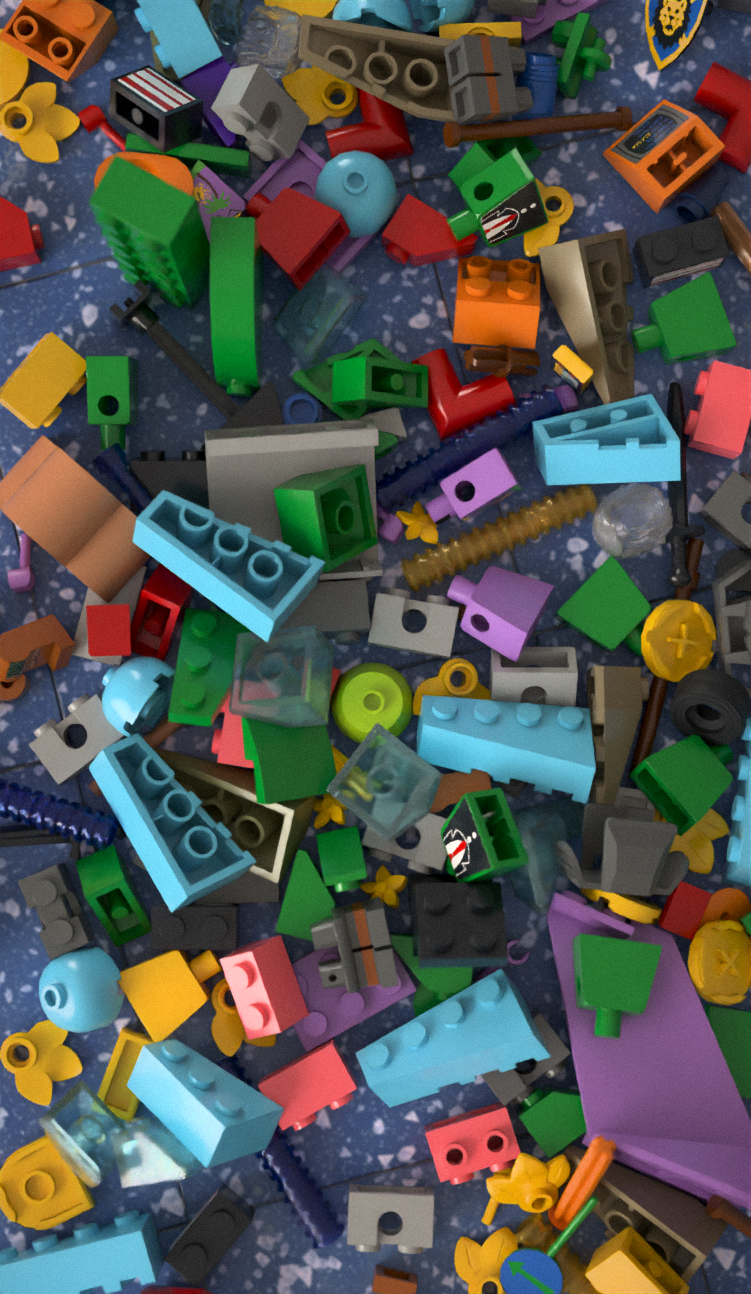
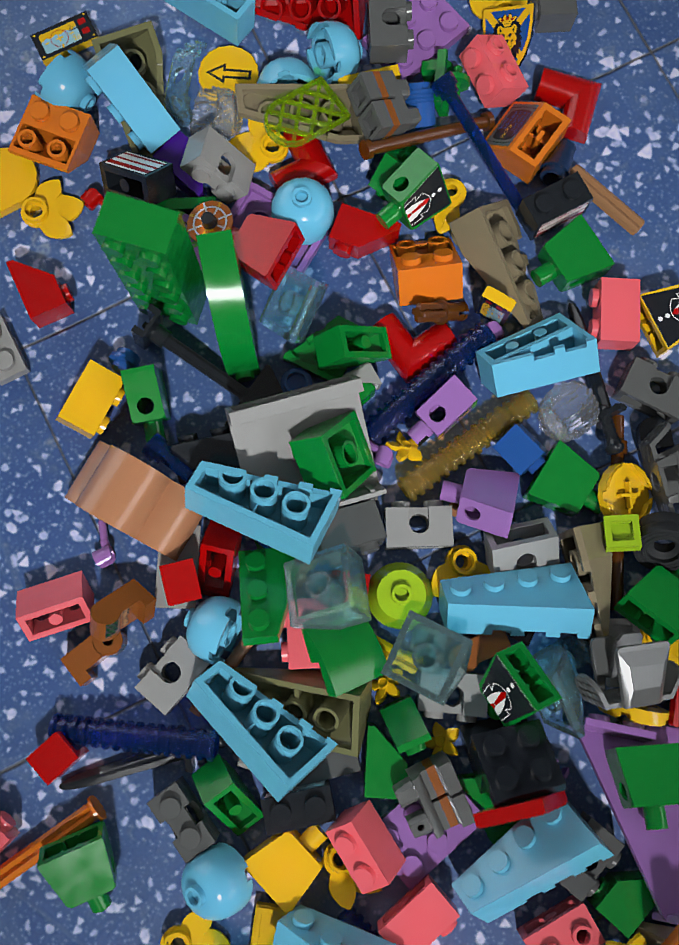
camera: 15 degrees left, 5 degrees down
(93, 340) = (123, 359): none -> blue plate
(235, 186) = (209, 218): none -> piece
(434, 81) = (344, 114): none -> clear neon green window
(451, 977) = (520, 810): none -> red tile
(562, 557) = (521, 450): none -> blue brick
(574, 73) = (447, 89): none -> clear blue piece
(644, 55) = (493, 71): none -> coral brick
(657, 685) = (622, 533): none -> lime tile

